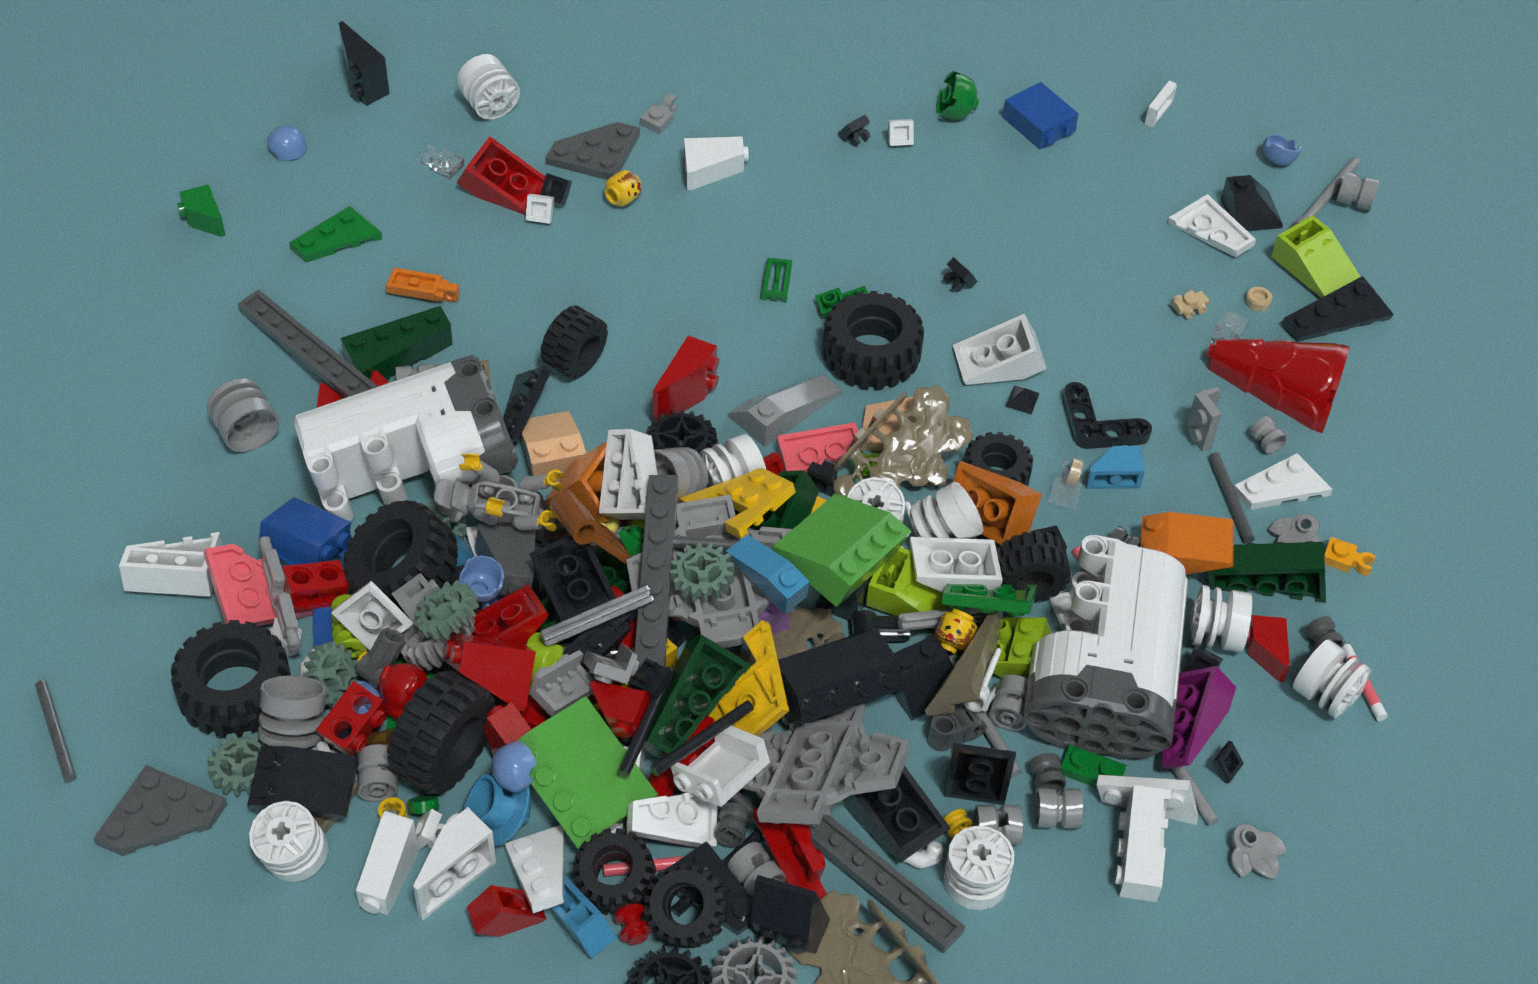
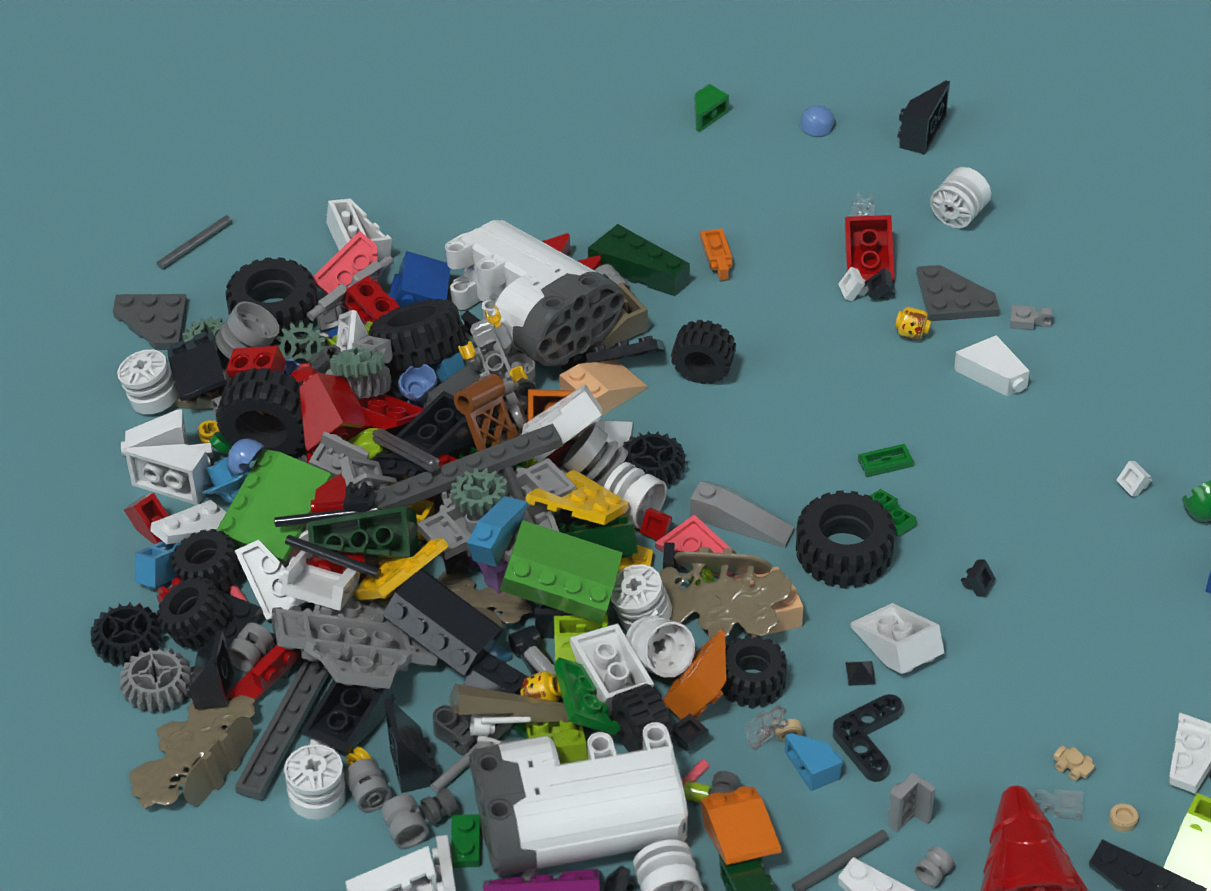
camera: 70 degrees right, 5 degrees down
(242, 415) = (512, 202): light grey wheel -> none
(305, 345) = (602, 211): dark grey plate -> none
(338, 231) = (742, 186): green wing -> none
(504, 726) = (290, 443): red slope -> none
(687, 378) = (709, 433): red slope -> none
(854, 129) = (1111, 445): black tile -> none

